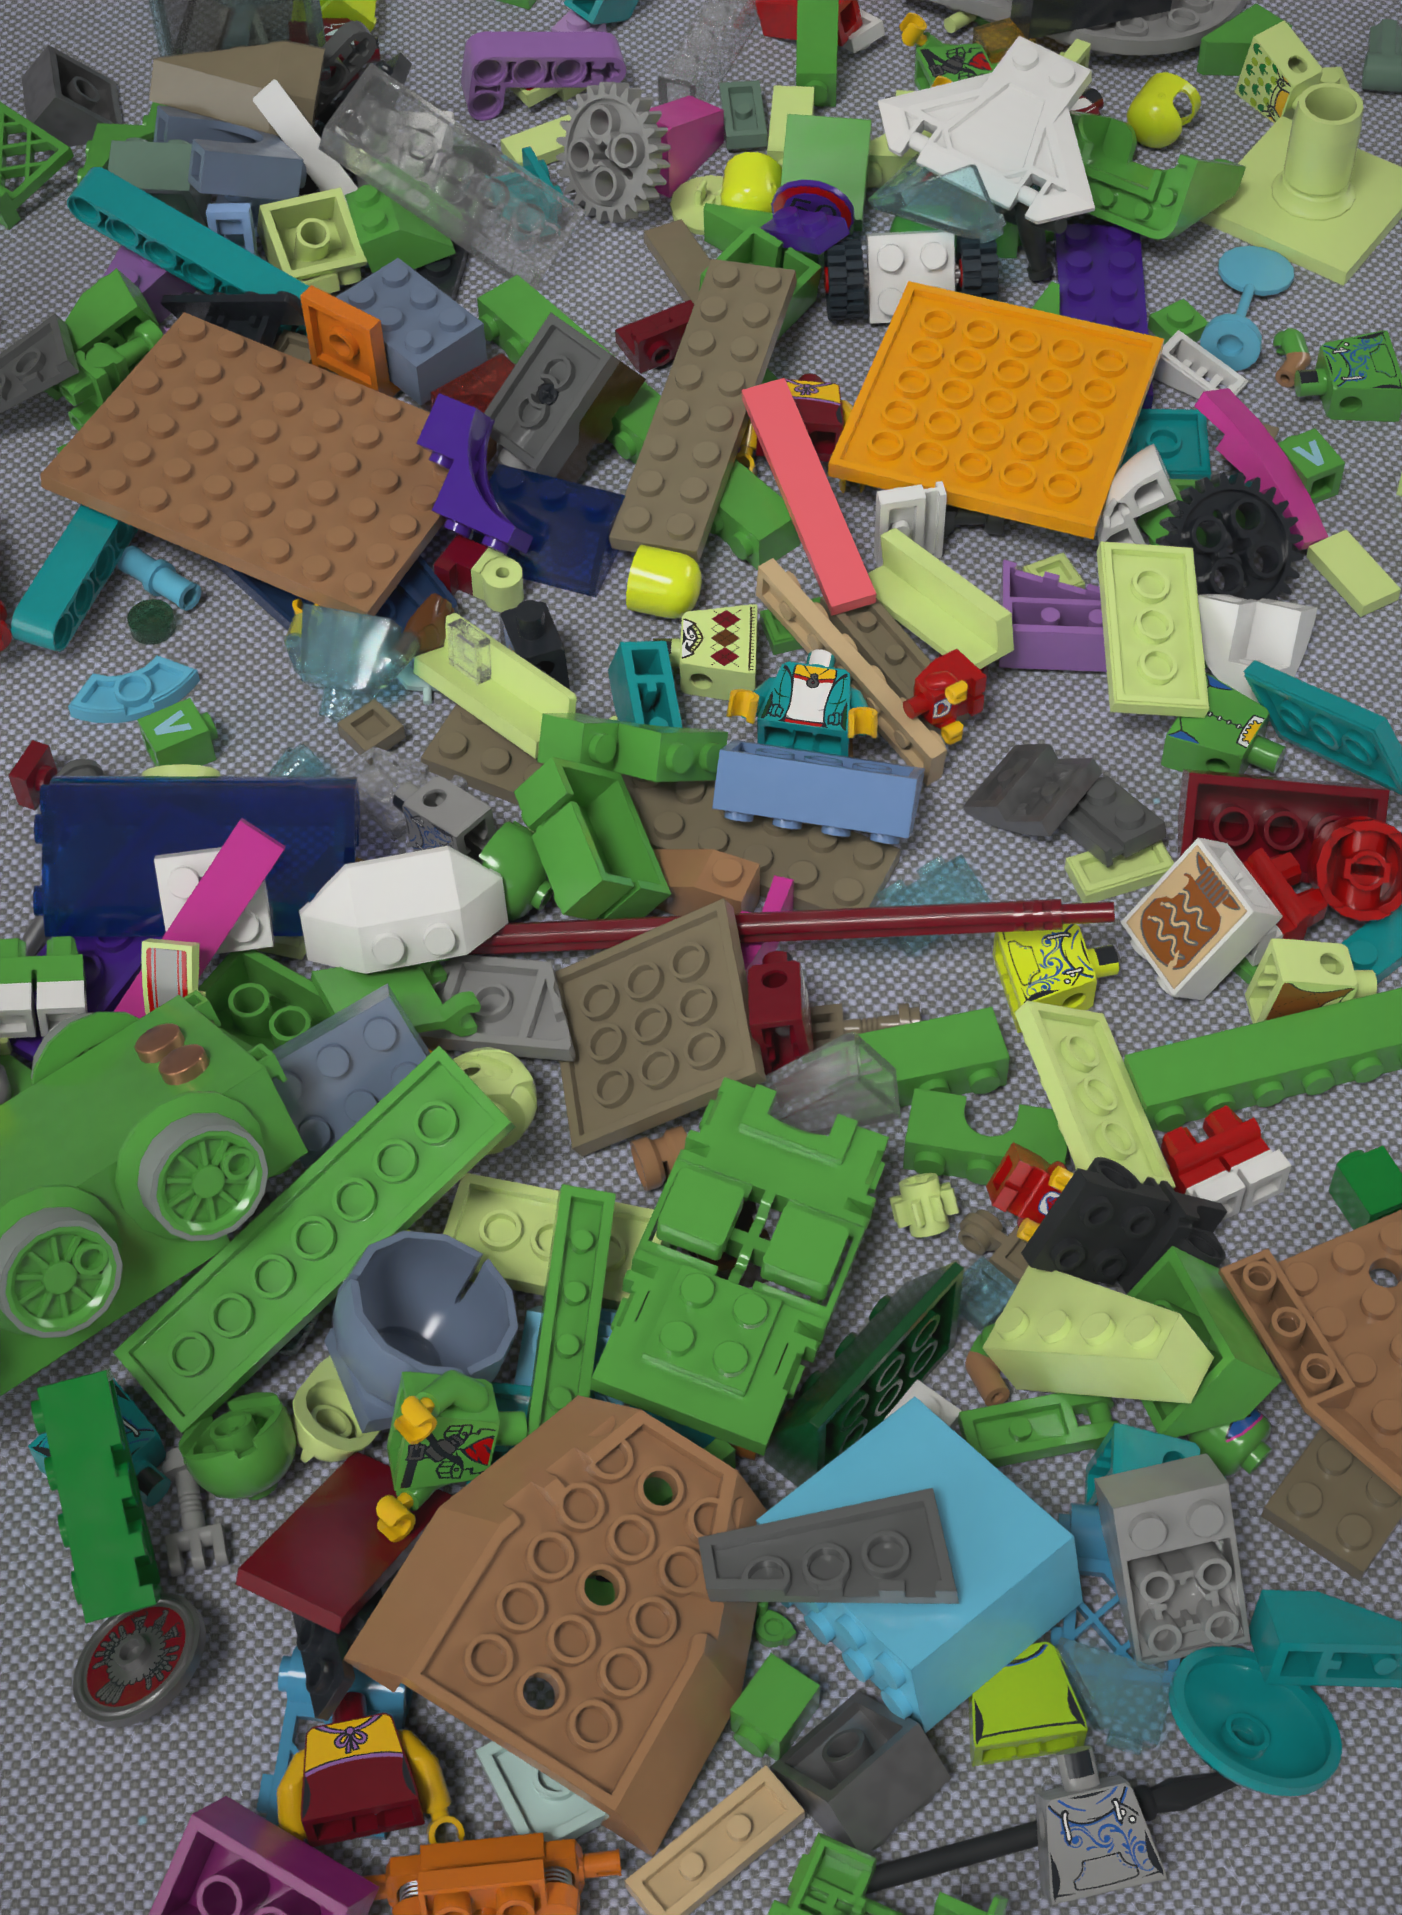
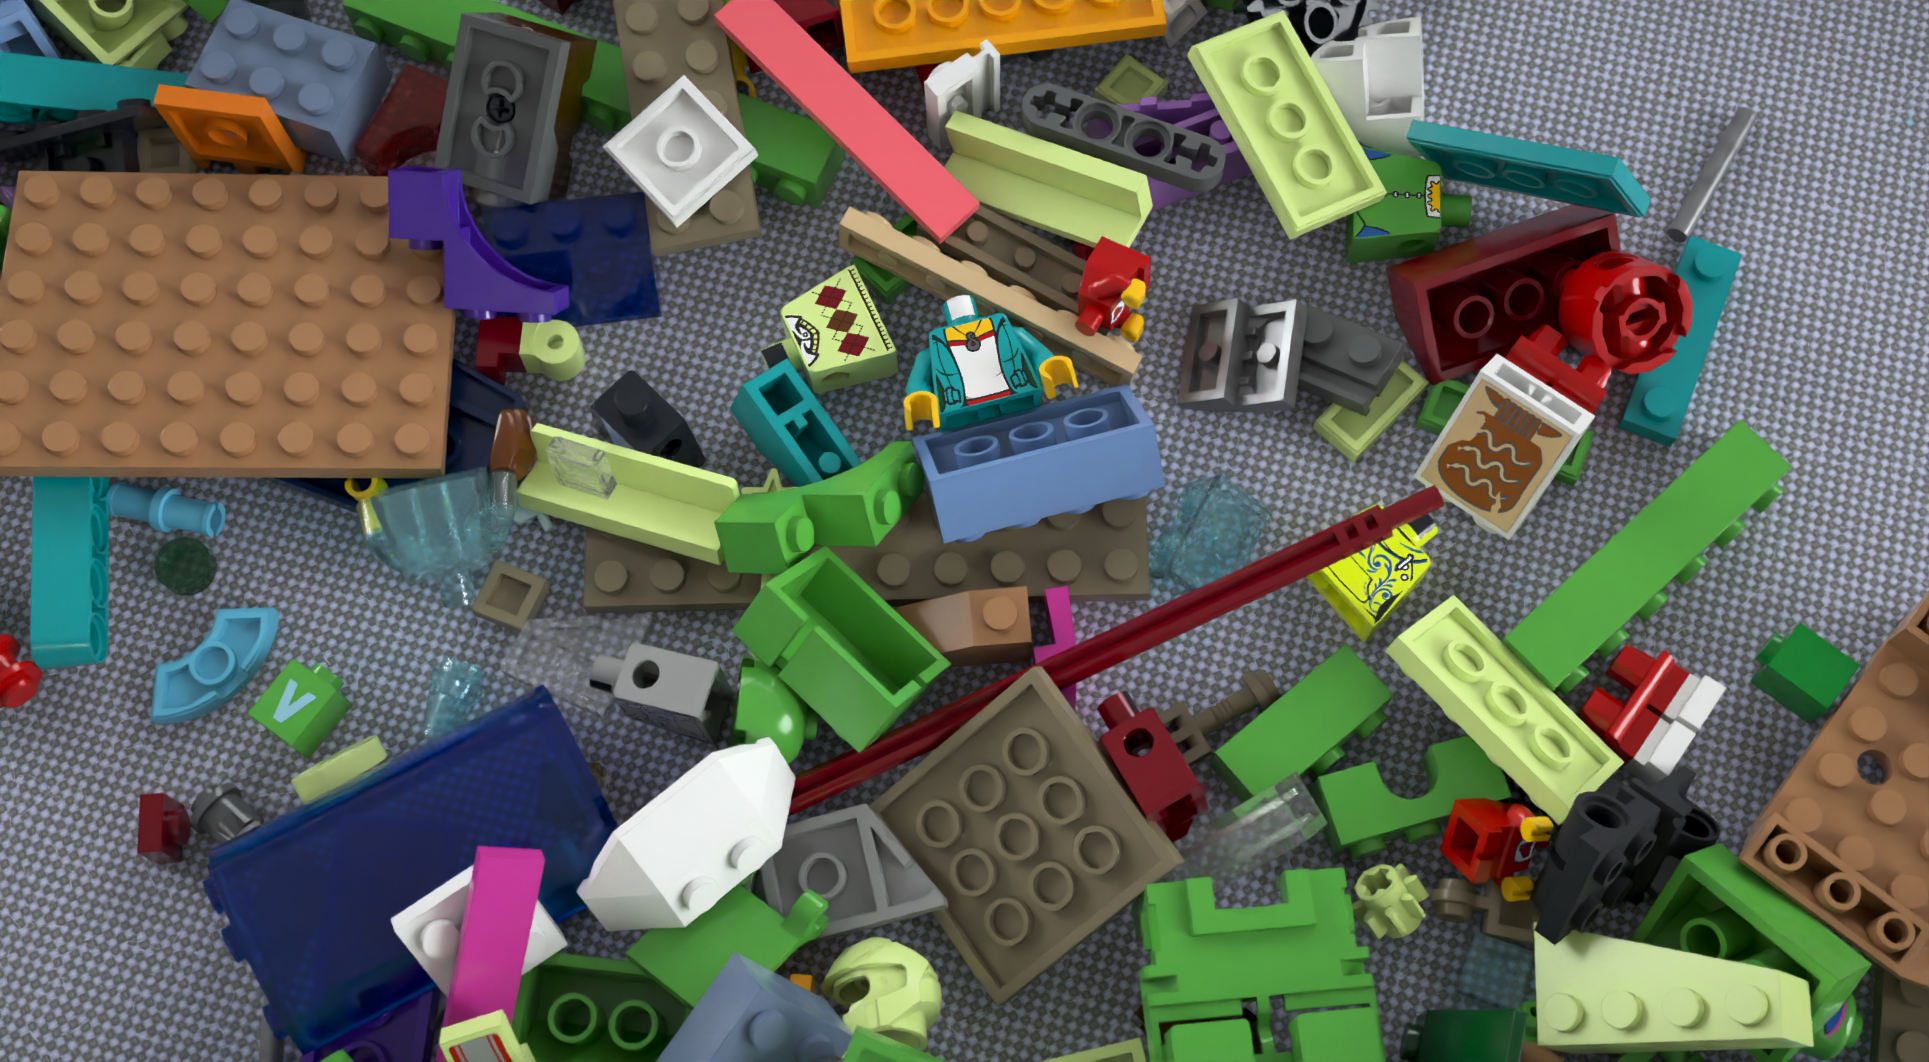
camera: 25 degrees left, 15 degrees up
(657, 1157) = (1099, 972): medium nougat wheel -> none
(663, 583) = (735, 276): neon yellow helmet -> none
(665, 473) = (680, 151): none -> white tile
(1018, 584) = (1126, 129): none -> dark grey beam
(1304, 977) = (1643, 463): yellowish green torso -> none

